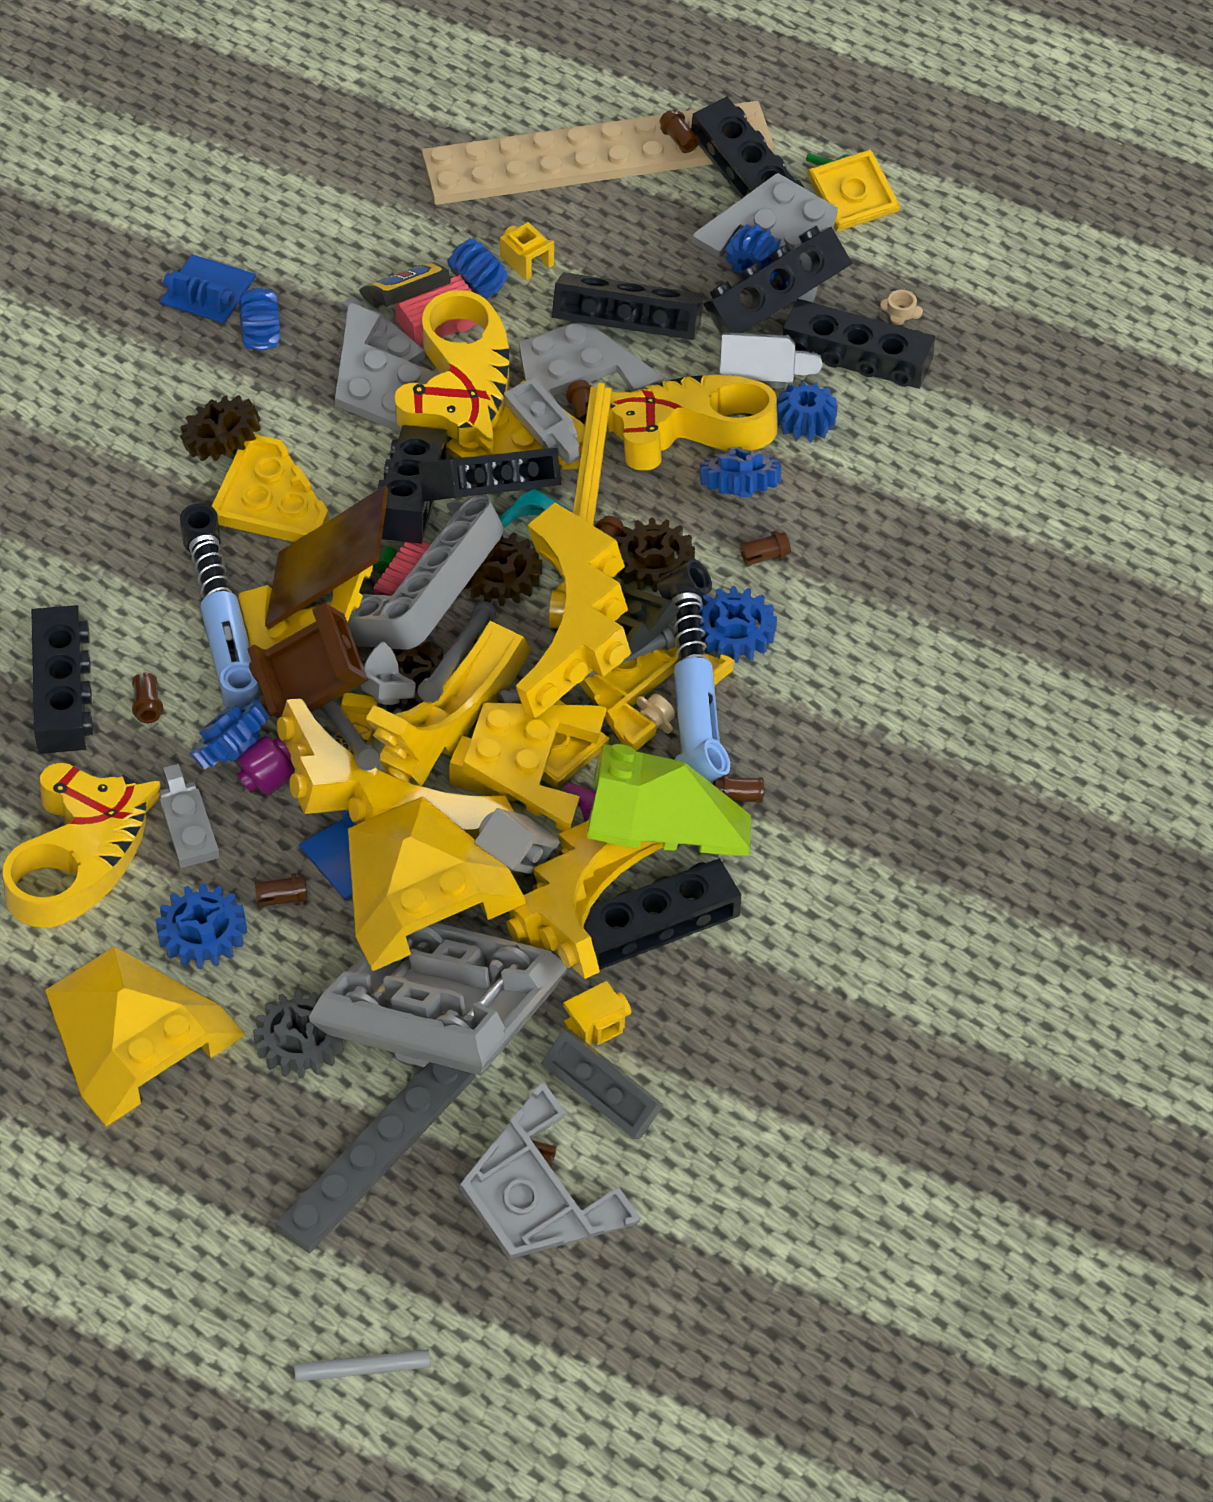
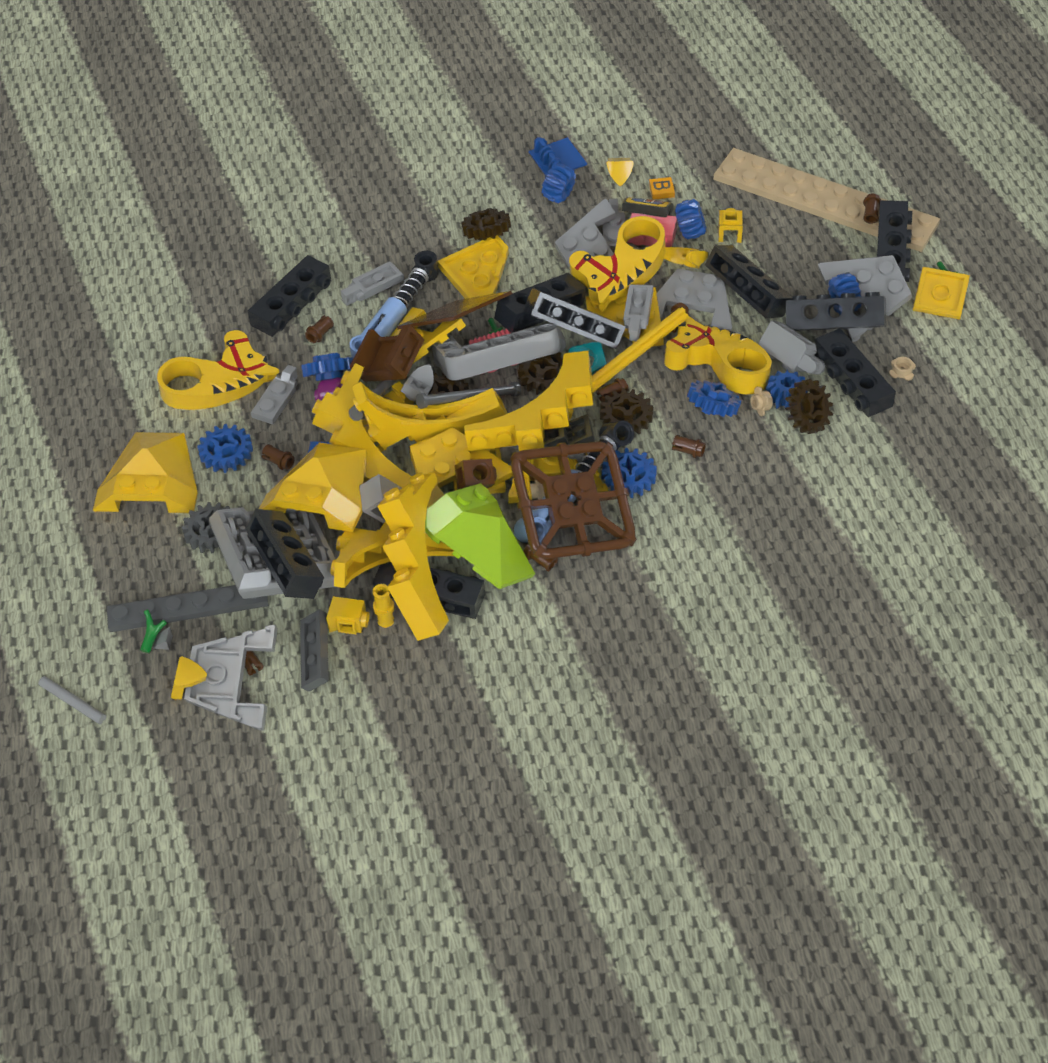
camera: 45 degrees right, 0 degrees up
(149, 595) = (372, 283): none -> light grey hinge
(311, 254) = (619, 169): none -> yellow tile
(374, 1211) = (151, 632): none -> green bar
(386, 252) = (661, 188): none -> light orange tile
(394, 1209) = (163, 639): none -> light grey piece
(486, 1228) = (187, 675): none -> yellow tile
(491, 980) = (284, 554): none -> black brick
(524, 324) = (688, 256): none -> yellow helmet
(577, 741) = (465, 474): none -> reddish brown brick
(624, 878) = (406, 548): none -> yellow arch
(637, 969) = (383, 605): none -> yellow pin
(720, 672) = (564, 513): none -> reddish brown plate
(794, 435) = (761, 401): none -> tan plate
(860, 413) = (809, 406): none -> dark brown gear

